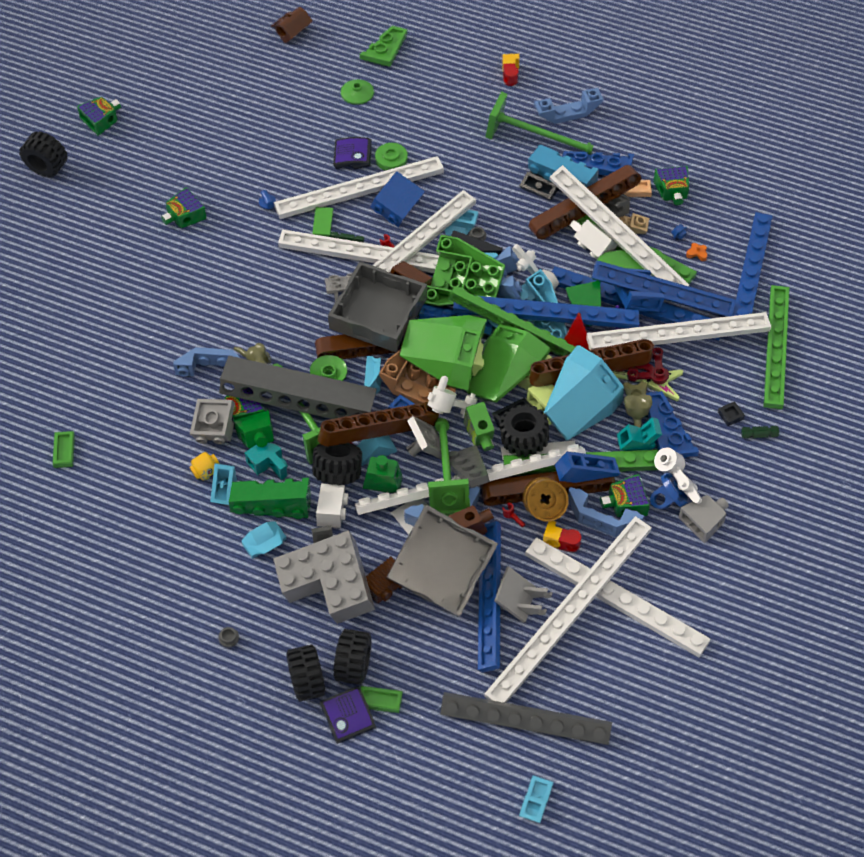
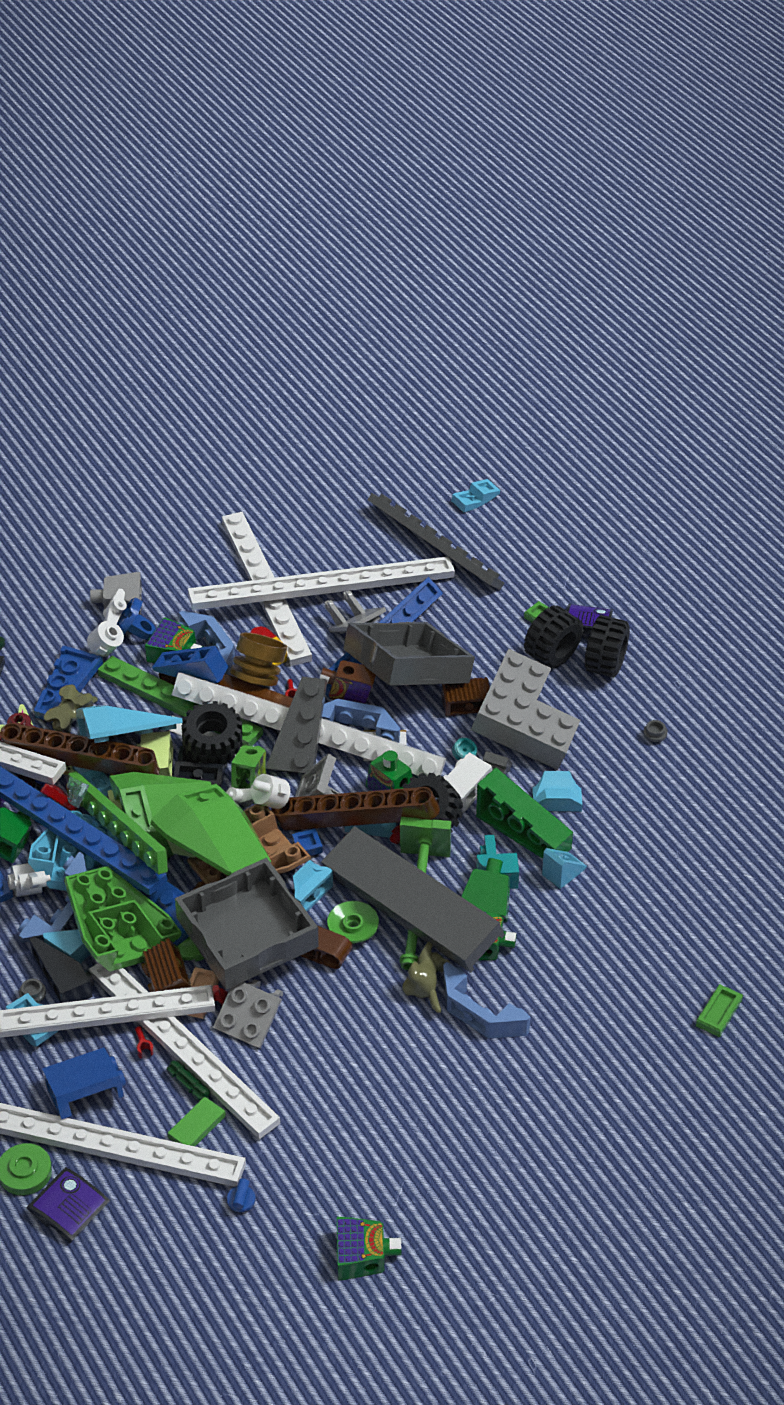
camera: 145 degrees left, 10 degrees down
(203, 466) = (570, 895): yellow head -> none
(213, 421) = (530, 925): light grey plate -> none
(358, 535) = (463, 747): none -> teal tile
(447, 495) = (351, 694): bright green tile -> none
(562, 335) = (77, 791): none -> clear light blue tile
(639, 438) = (104, 684): teal brick -> none

